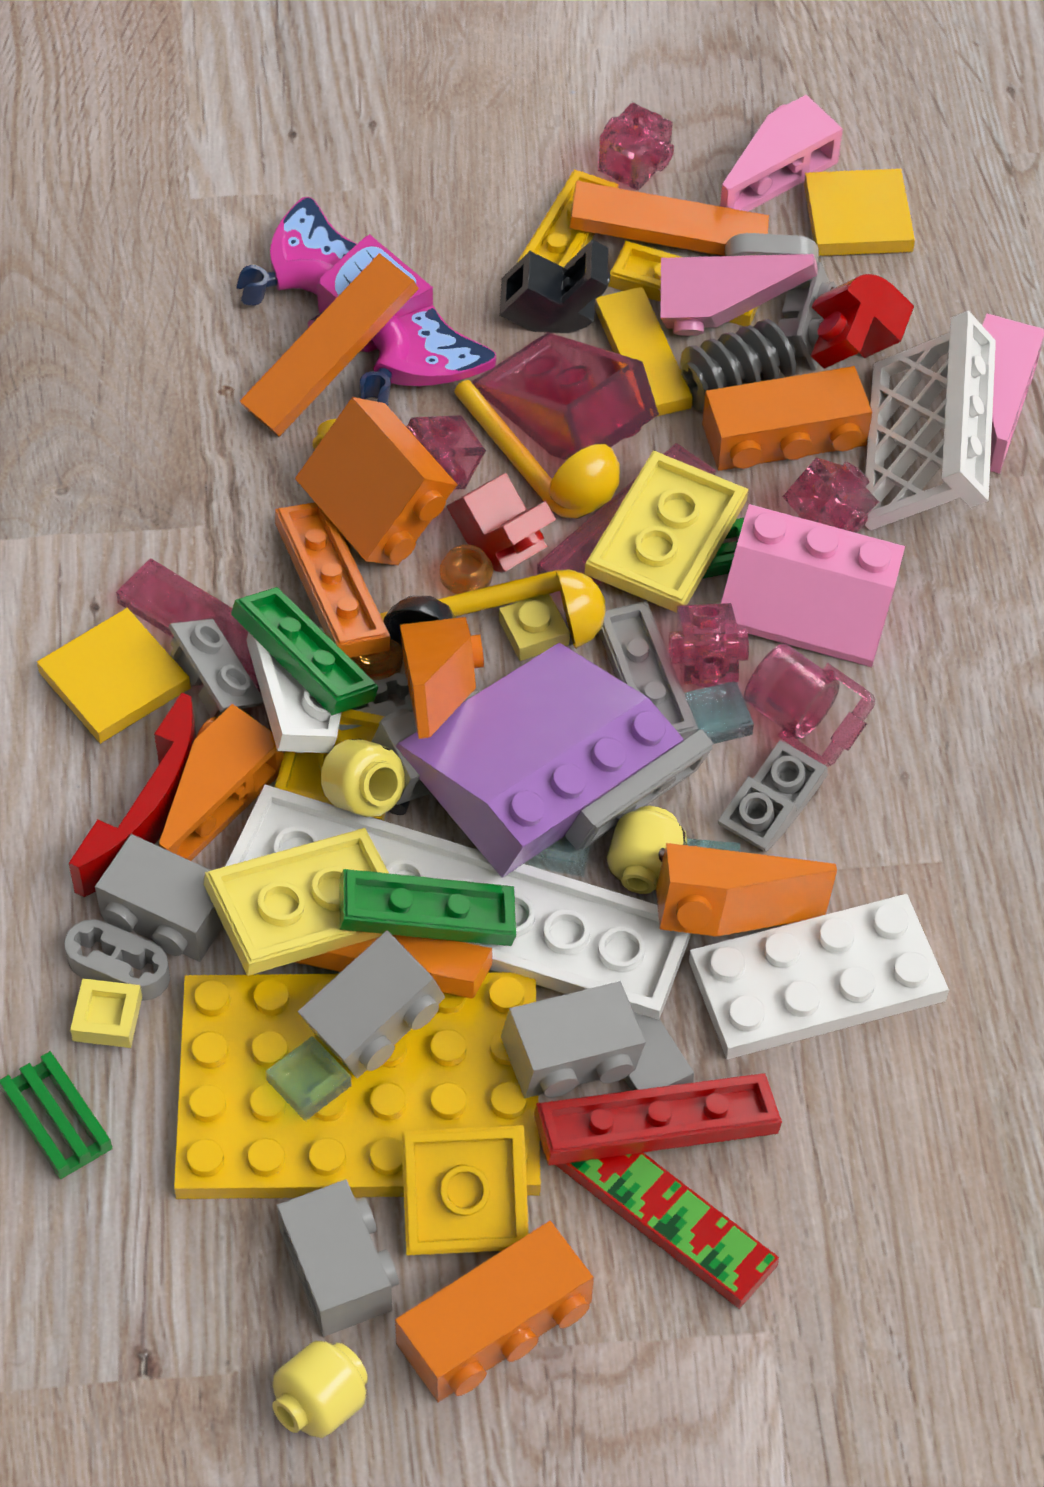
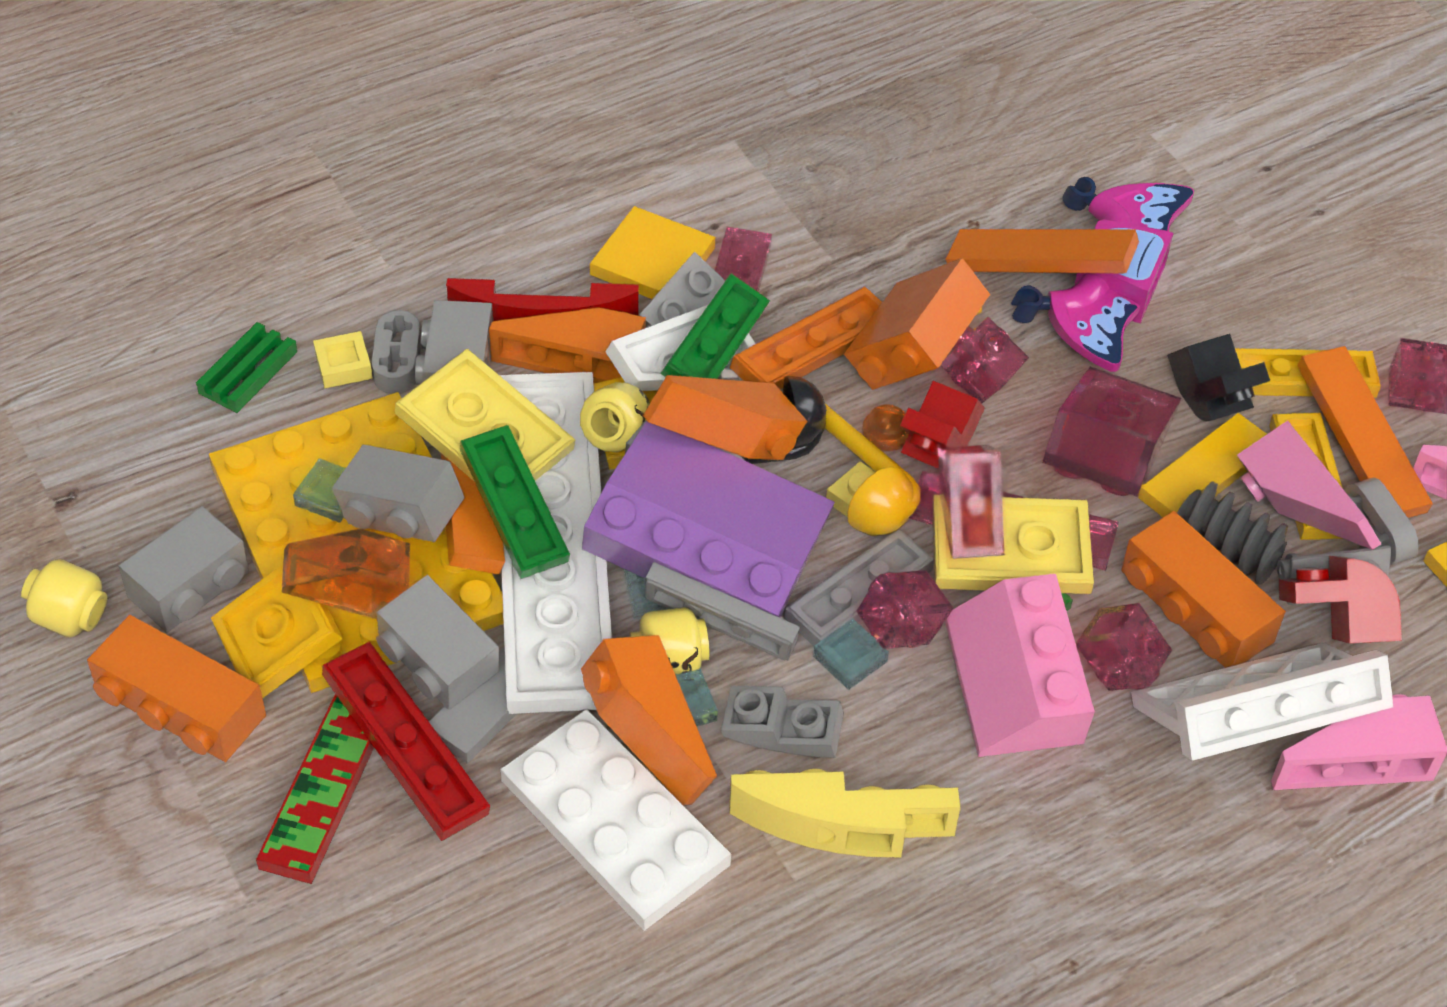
camera: 65 degrees right, 5 degrees down
(463, 1079) = (348, 570): none -> clear orange slope
(581, 482) = (1027, 463): yellow piece -> none
(625, 527) = (972, 500): none -> clear pink slope
(799, 696) = (889, 702): clear pink piece -> none
(899, 794) = (821, 815): none -> light yellow slope

